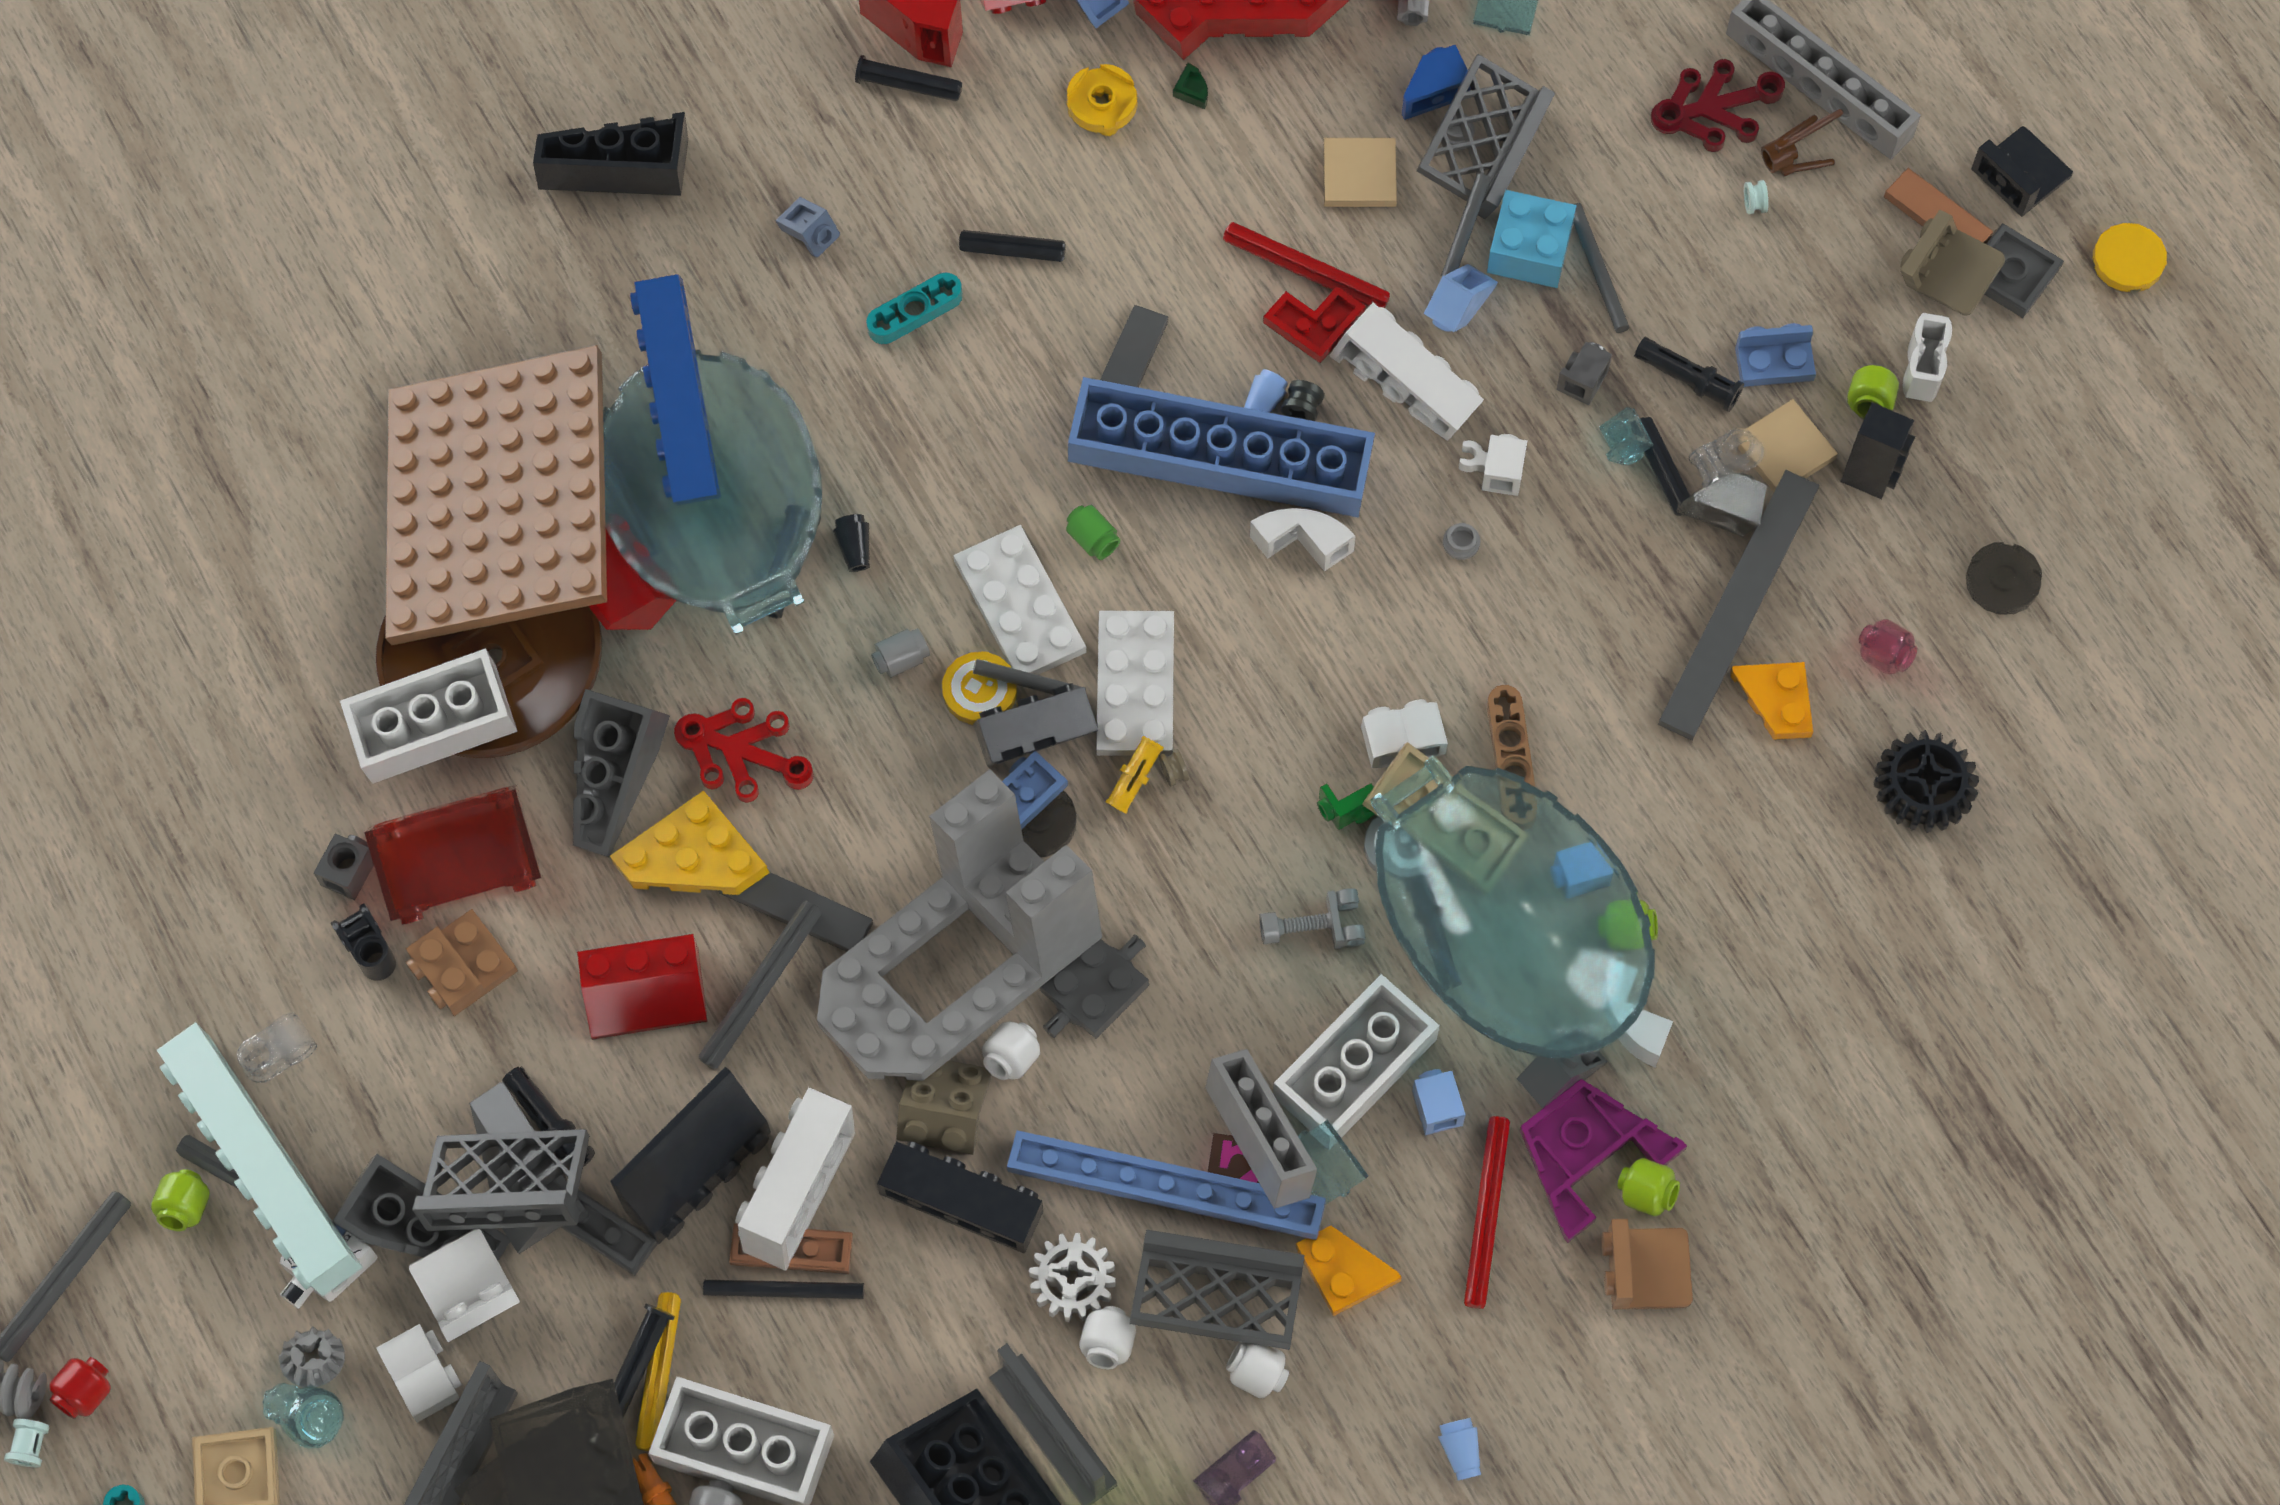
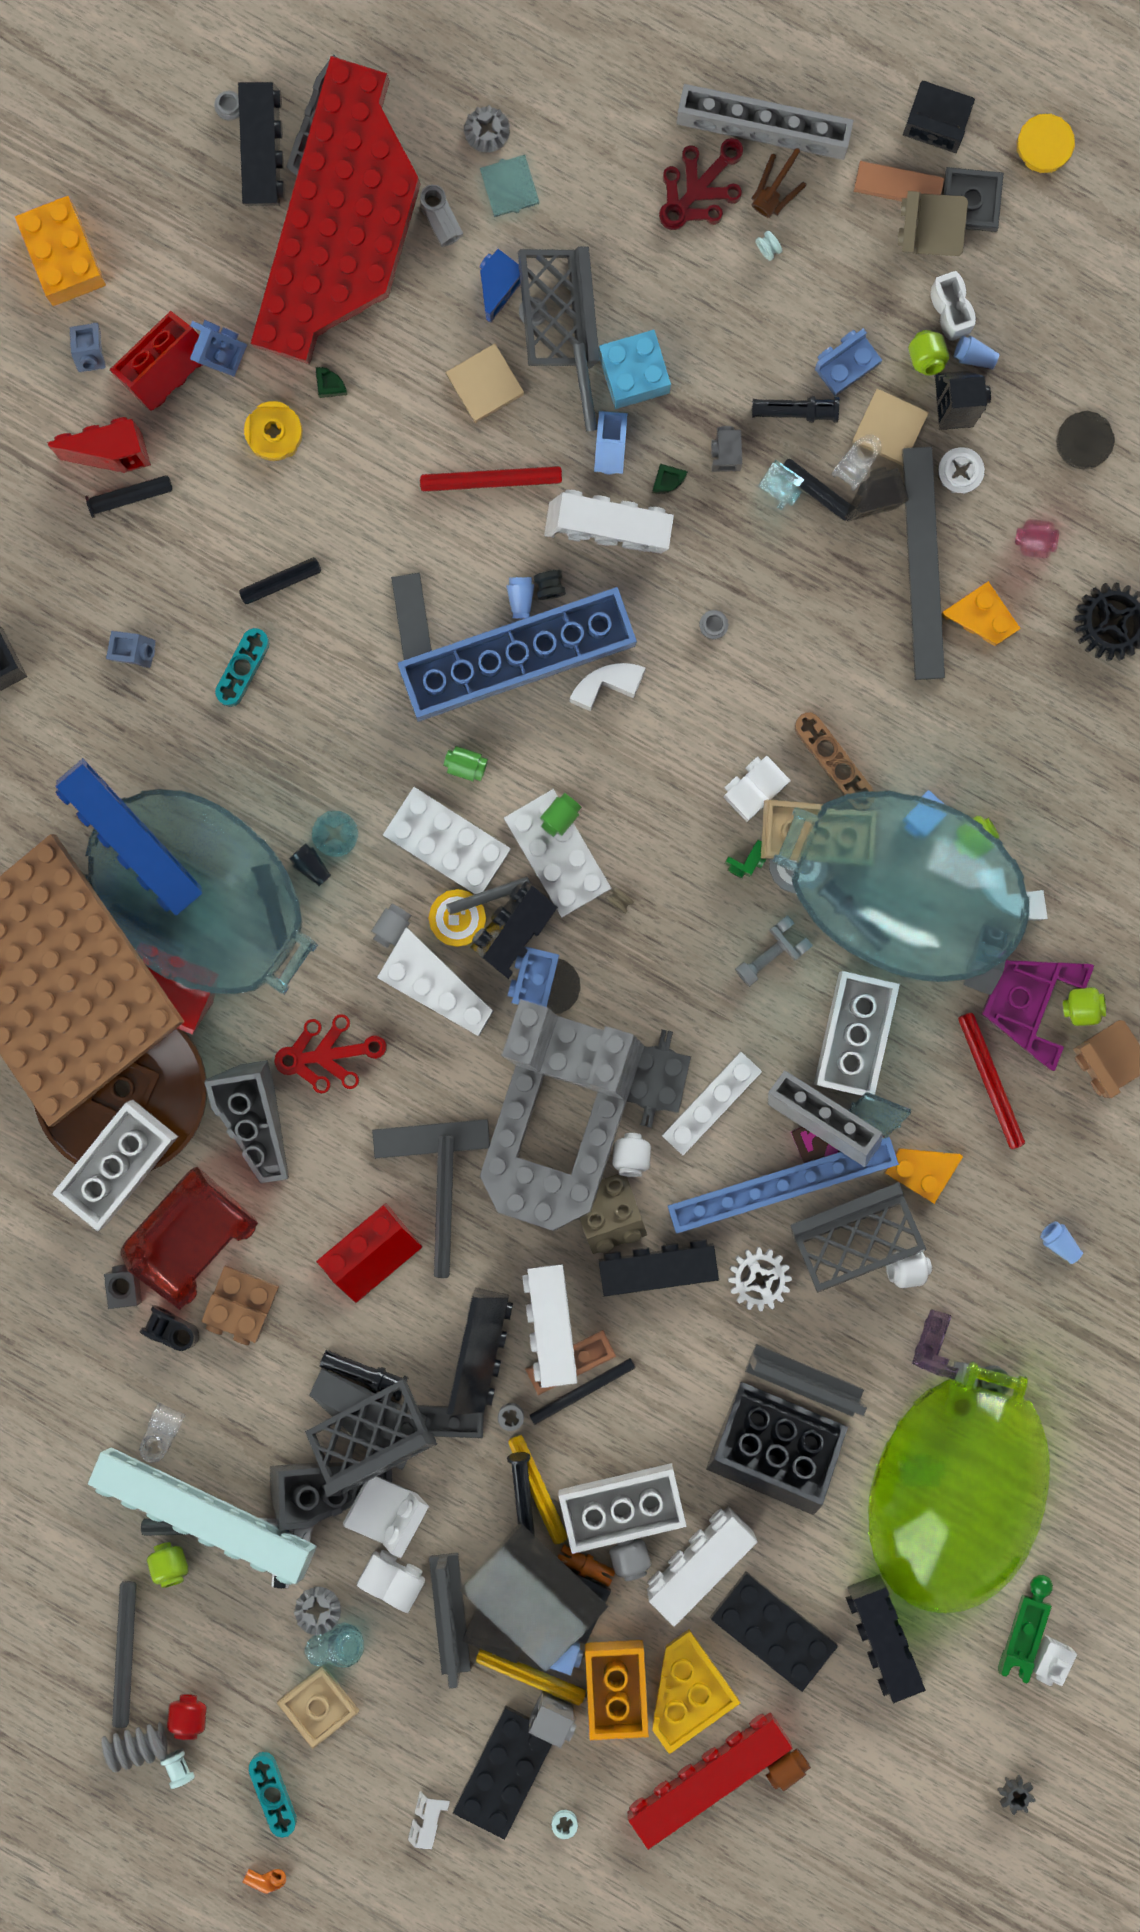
camera: 30 degrees left, 20 degrees up
(669, 1267) = (519, 1414): none -> light grey bush
(691, 853) = (342, 1144): yellow plate -> none
(892, 539) = (348, 832): none -> clear light blue gear
(904, 734) = (428, 980): none -> white wedge
(1107, 1337) = (804, 1304): white head -> none
(1121, 795) = (598, 921): yellow pin -> none
(1140, 1050) = (711, 1103): none -> white plate
(1162, 634) = (560, 815): none -> bright green brick
(1316, 330) = (527, 524): red plate -> none
(1438, 1101) = (921, 1027): light blue brick -> none
(1500, 465) = (709, 553): white brick -> none
(1502, 370) = (668, 479): none -> dark green tile
(1599, 270) = (691, 363): dark grey bar -> none
(1850, 521) = (961, 456): none -> white gear
(1928, 421) = (975, 353): none -> light blue cone

